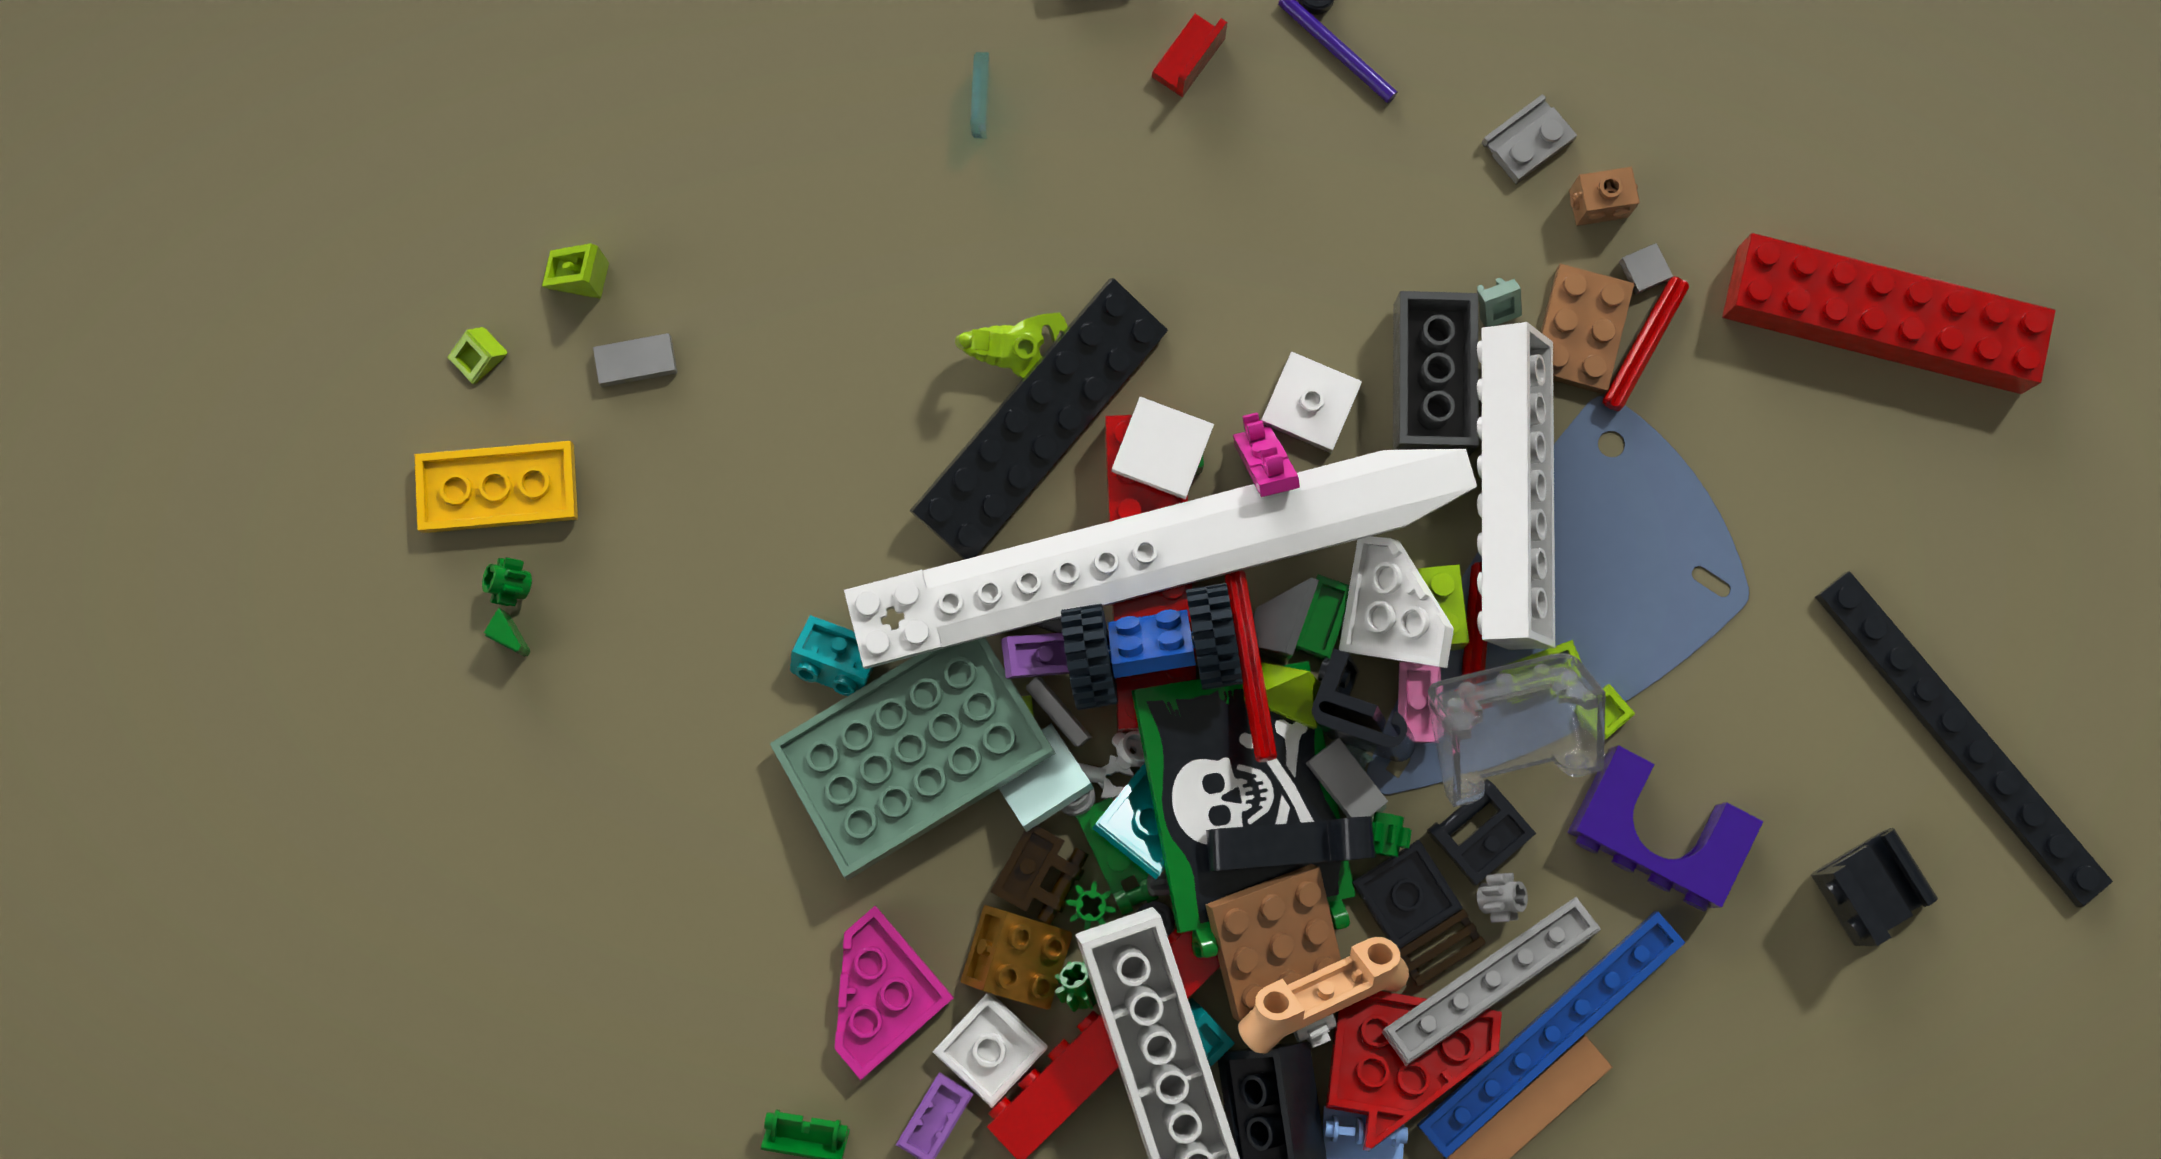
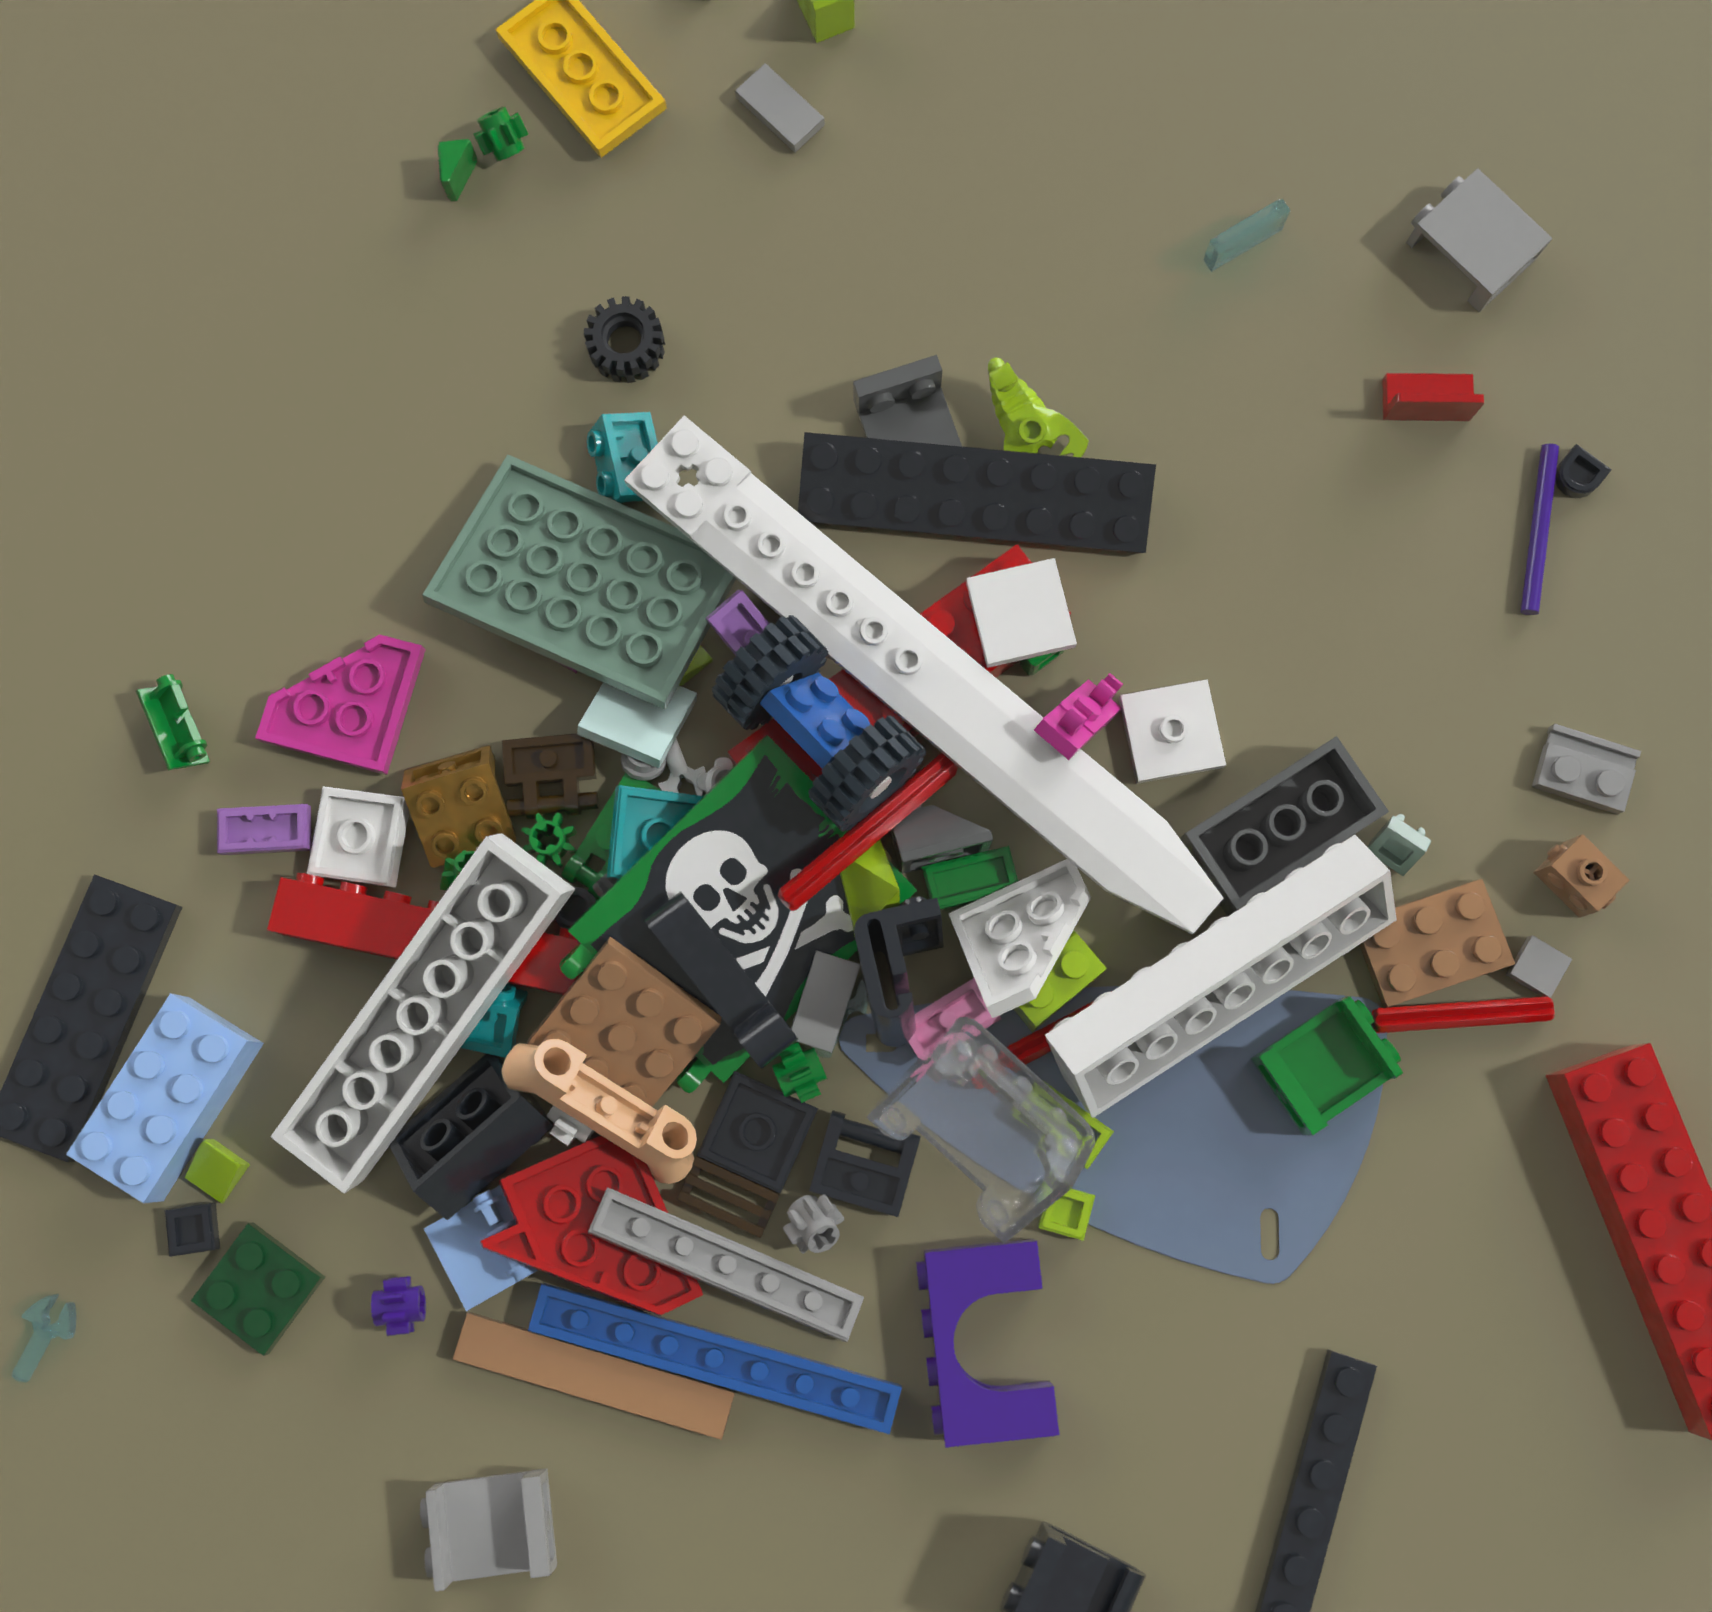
camera: 60 degrees right, 0 degrees up
(718, 584) = (620, 316): none -> black tyre
(942, 425) = (906, 404): none -> dark grey bracket
(1058, 712) = (705, 708): light grey tile -> none
(1620, 459) = (1327, 1064): none -> green panel

